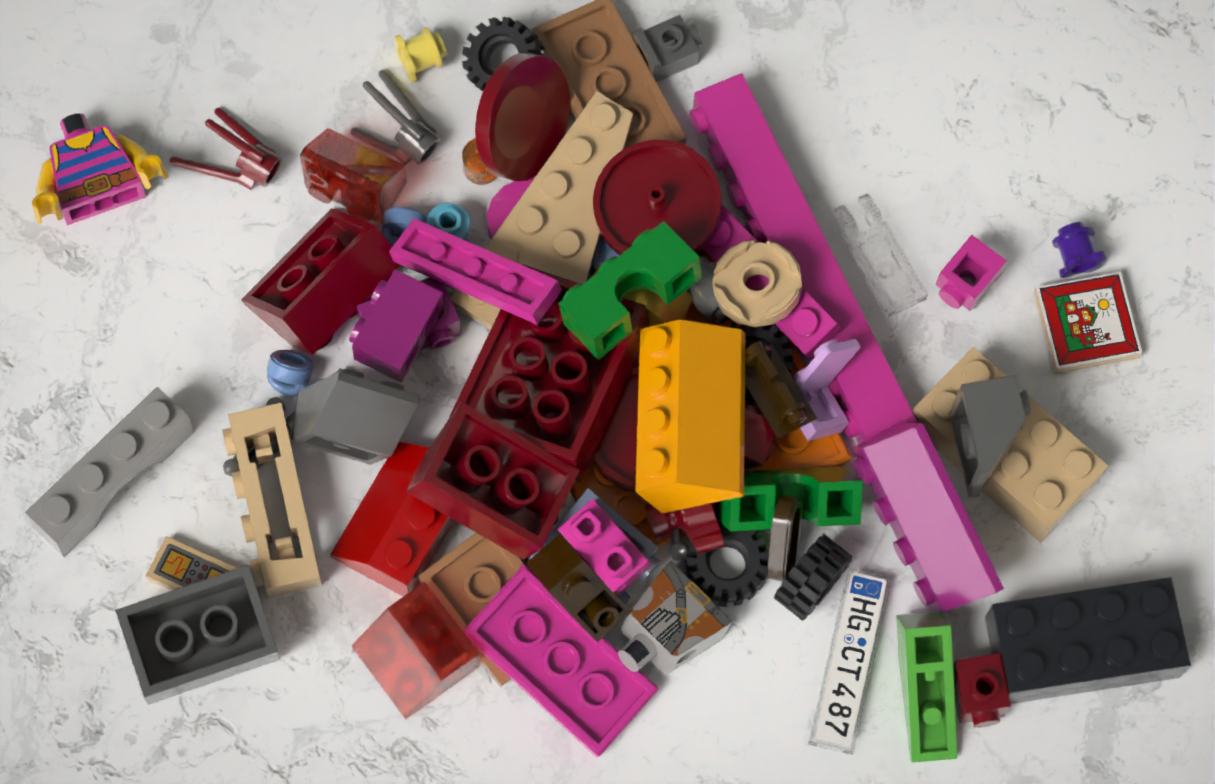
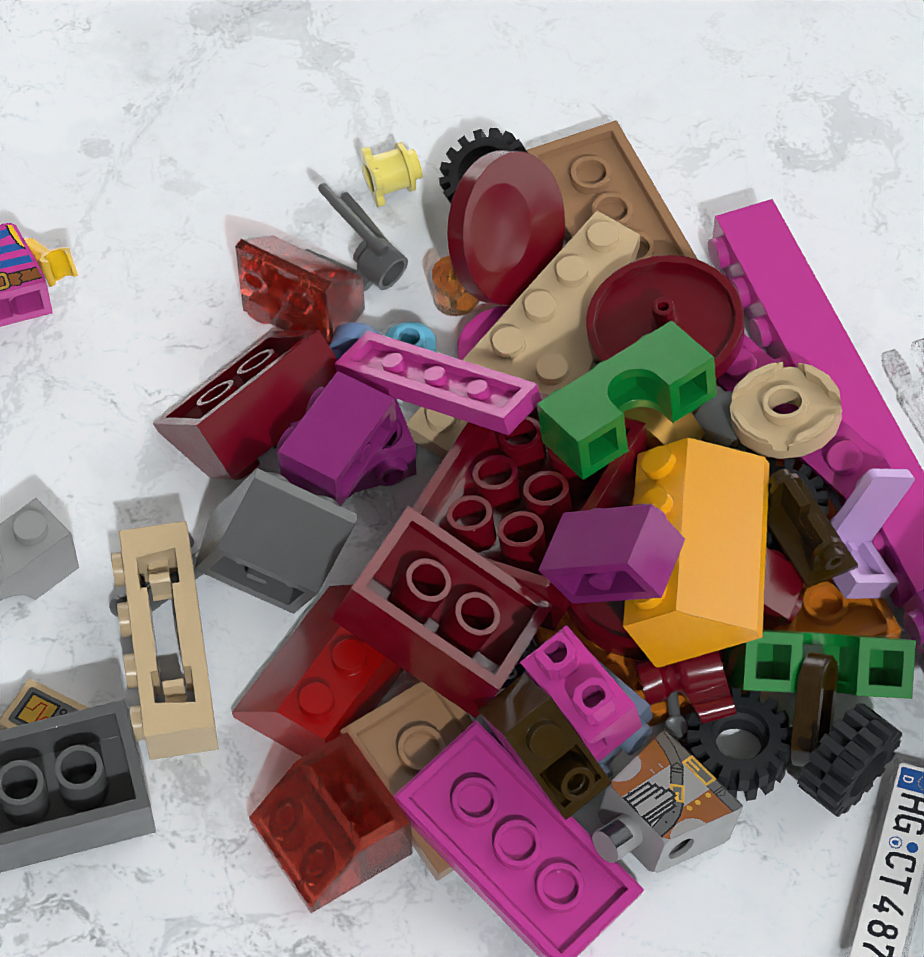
camera: 10 degrees right, 15 degrees down
(256, 160) = (185, 275): dark red plant -> none
(289, 368) = (200, 494): medium blue tile -> none
(625, 434) = (612, 554): none -> magenta brick
(666, 59) = (686, 177): dark grey brick -> none

